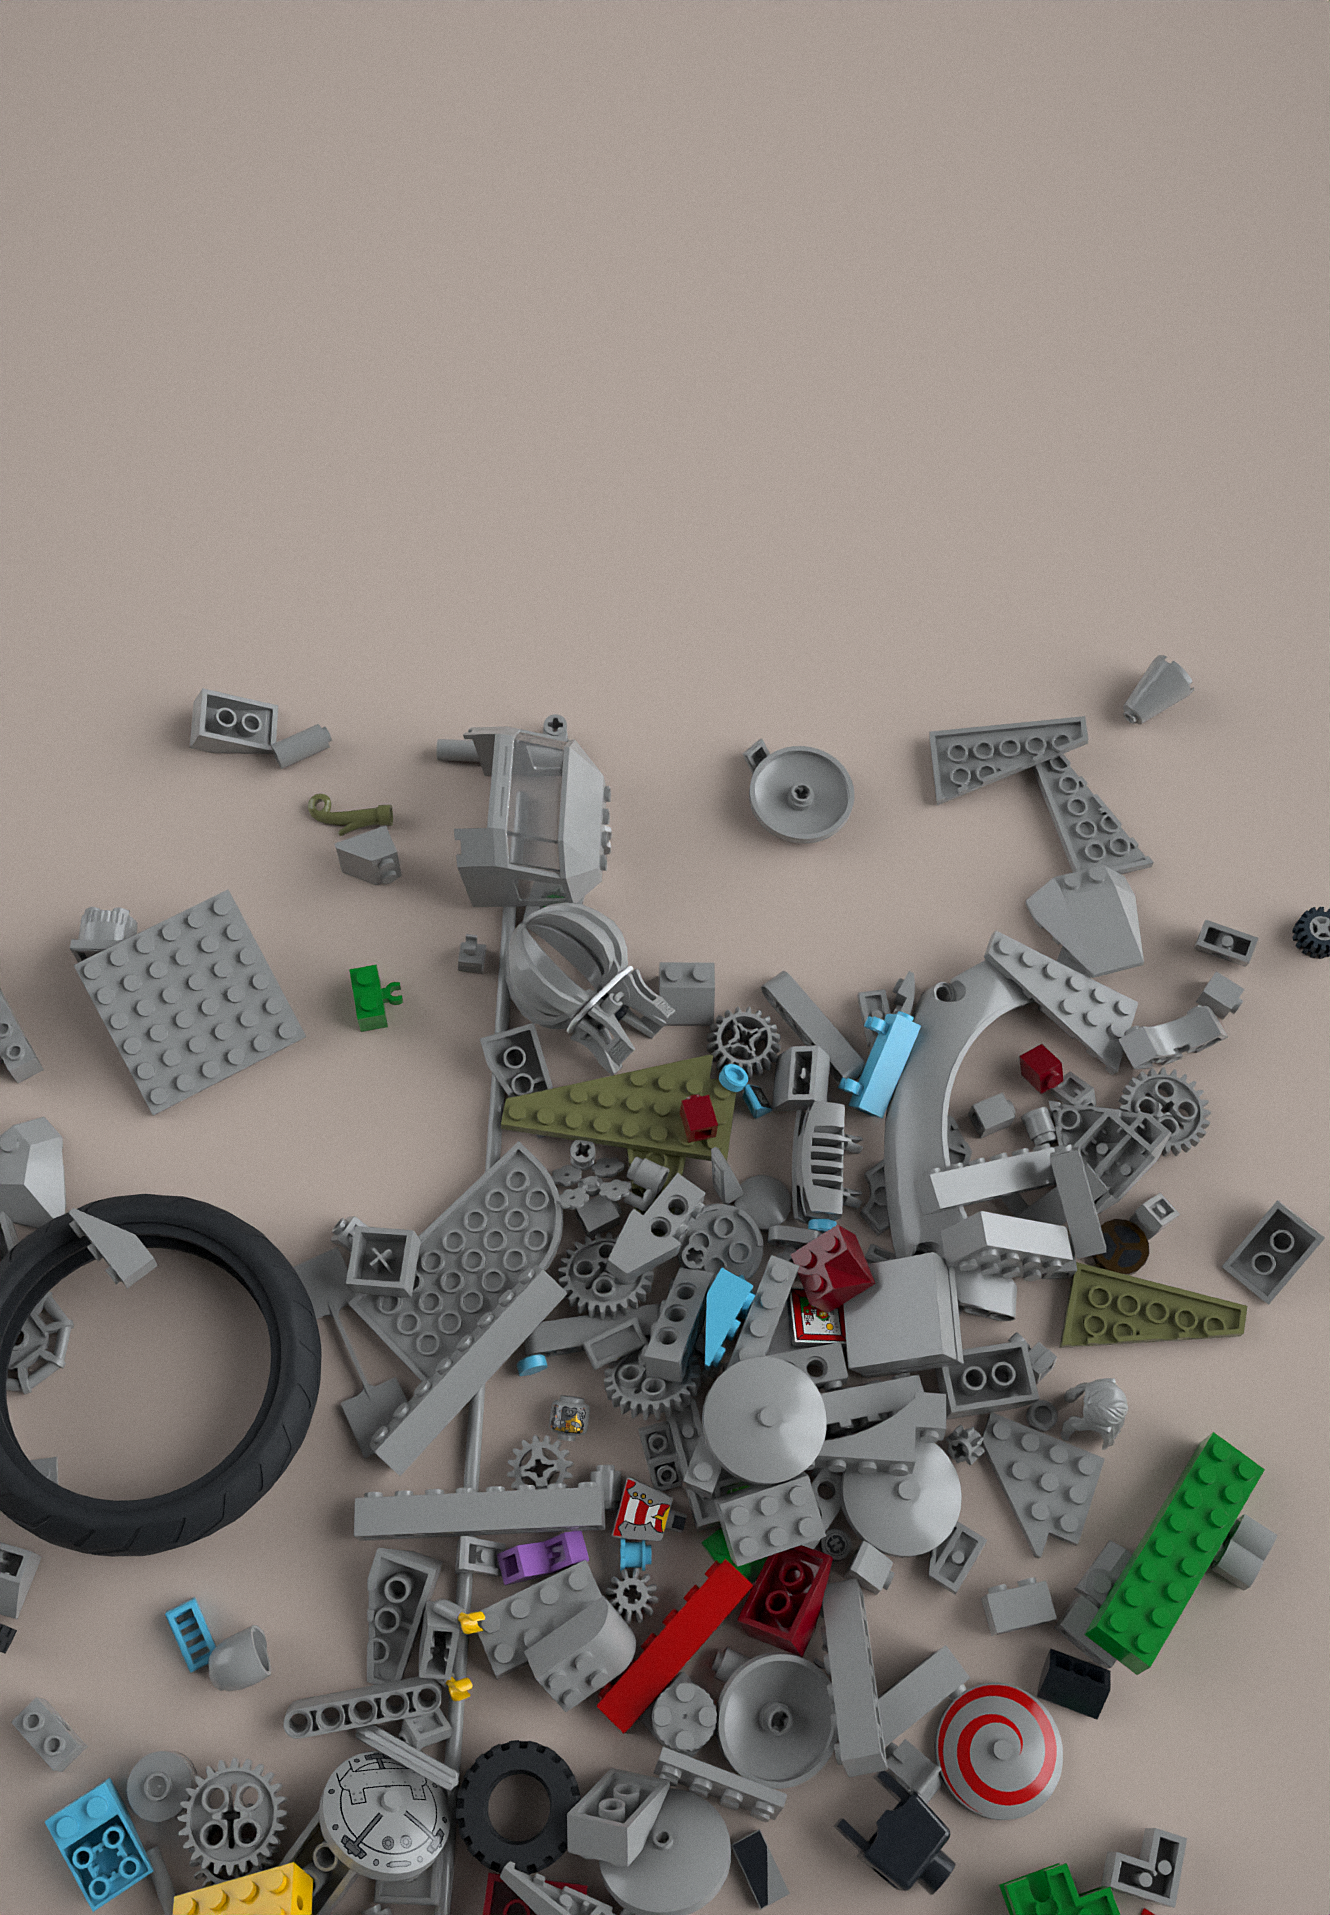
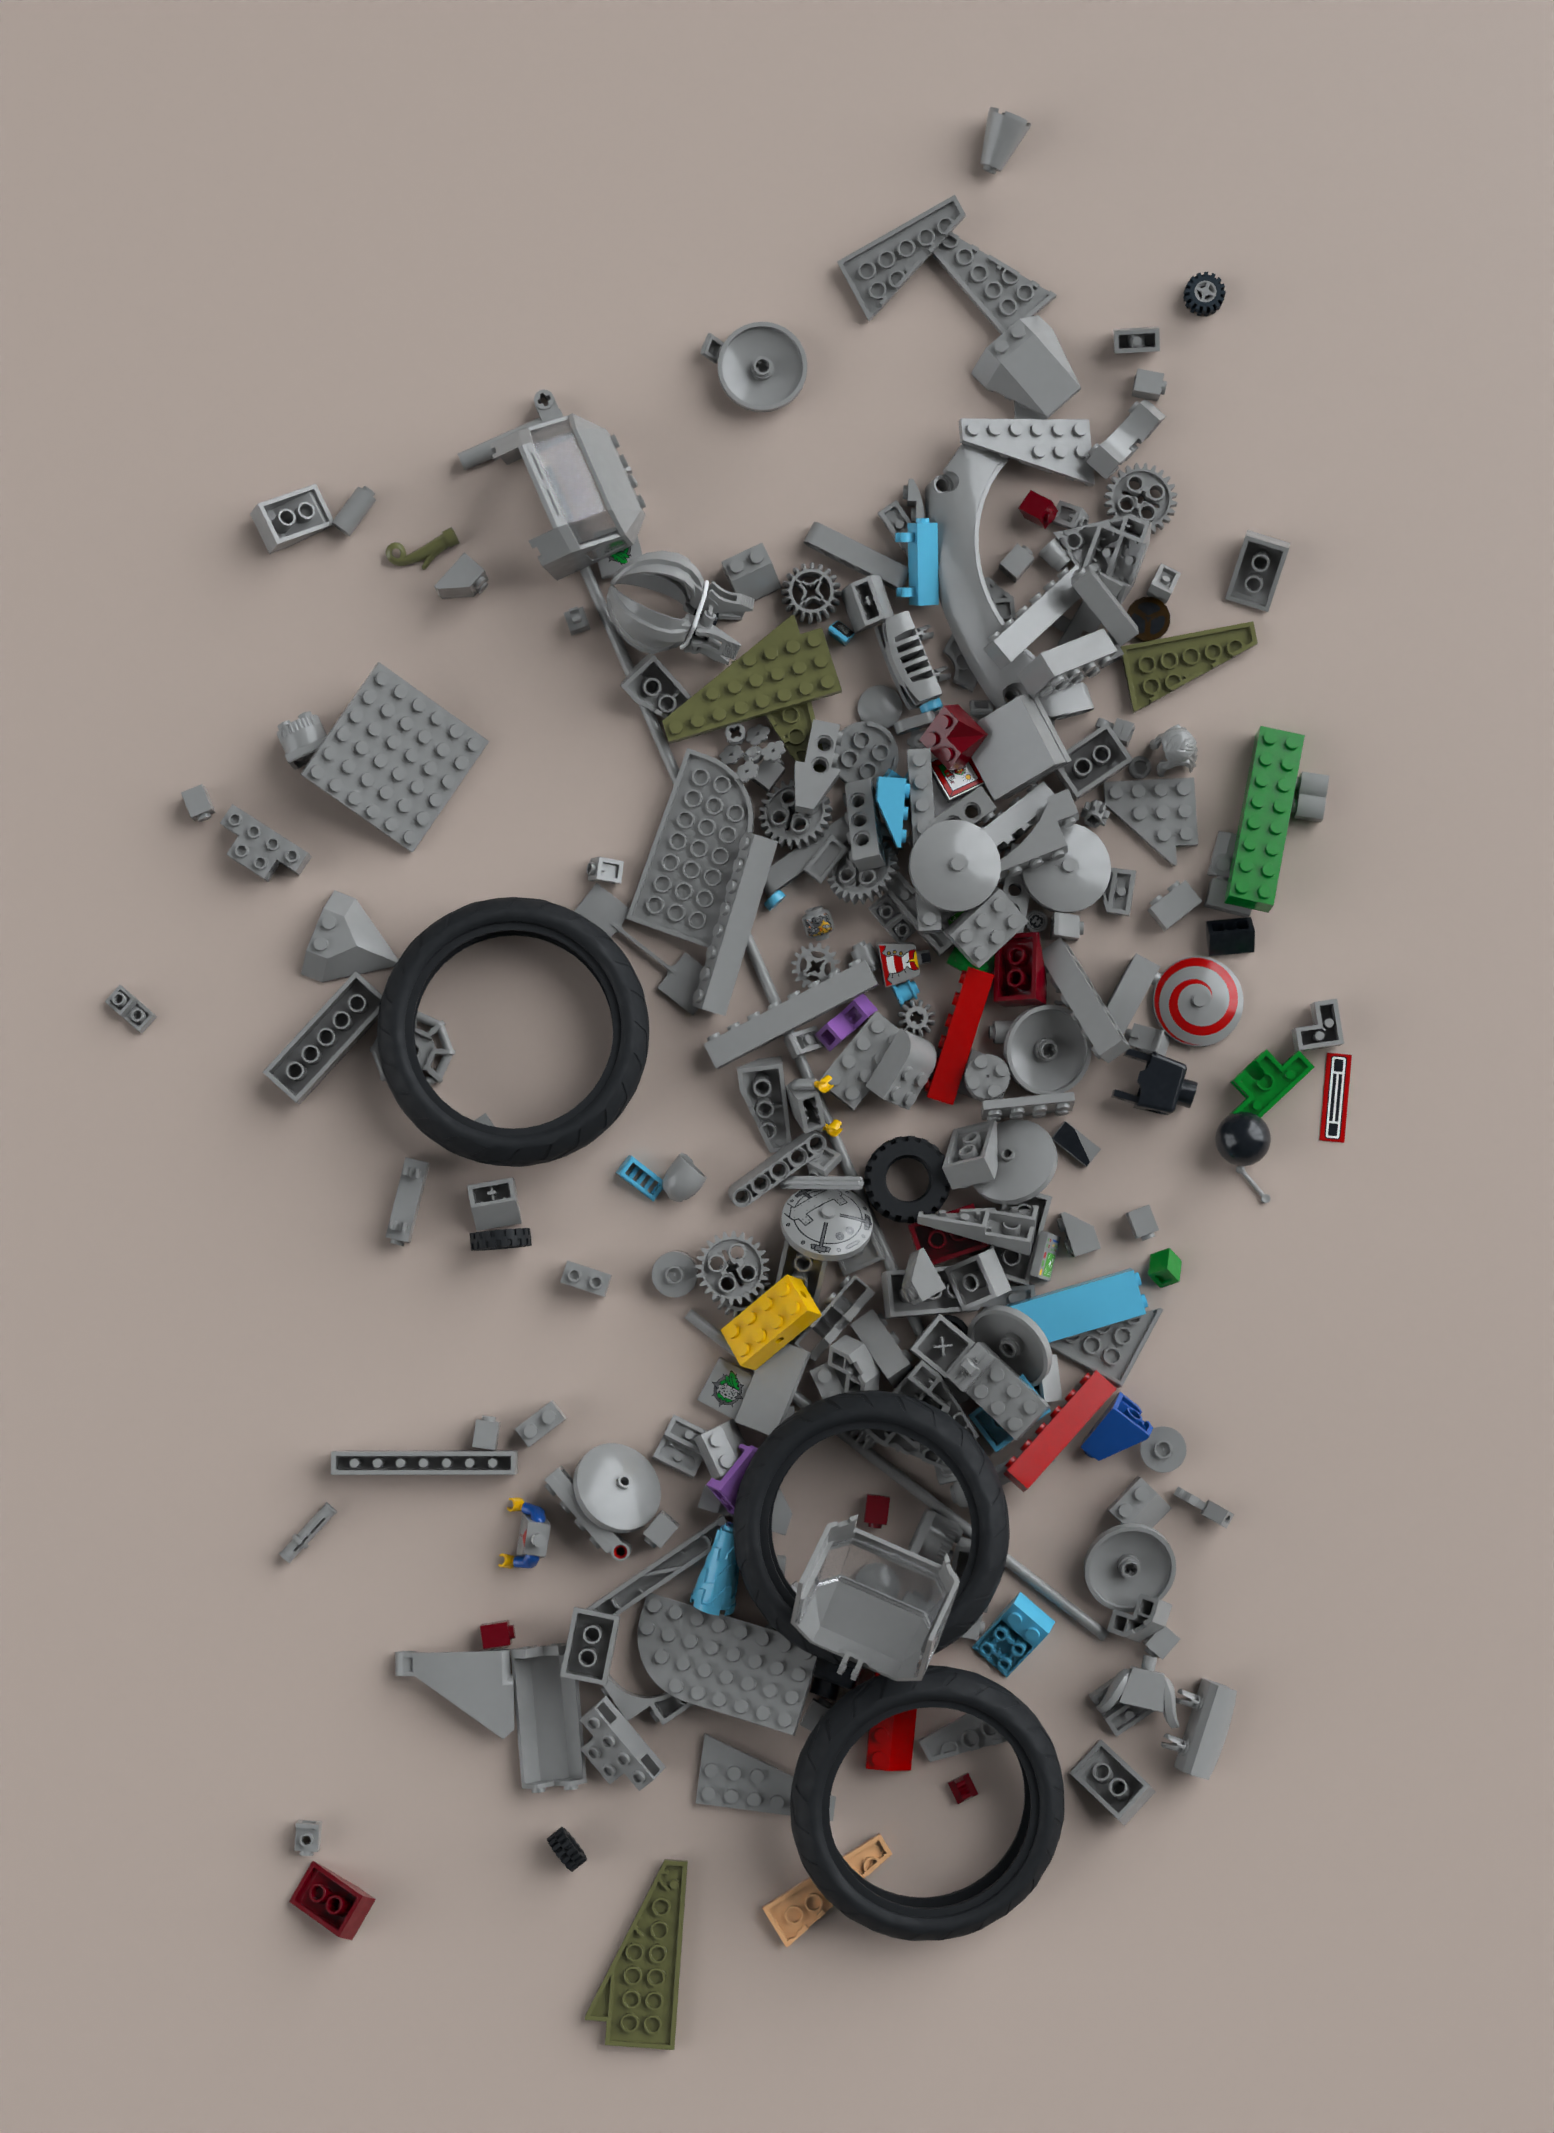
camera: 20 degrees left, 20 degrees up
(100, 1844) = (656, 1323): medium azure slope -> none
(119, 1248) = (462, 959): light grey slope -> none
(370, 997) = (521, 689): green brick -> none
(383, 1261) = (639, 879): light grey brick -> none
(648, 1176) = (792, 730): light grey piece -> none
(696, 1247) = (852, 778): light grey bush -> none
(698, 1118) = (808, 671): dark red brick -> none
(724, 1178) = (846, 705): light grey slope -> none
(733, 1078) = (817, 626): medium azure tile -> none

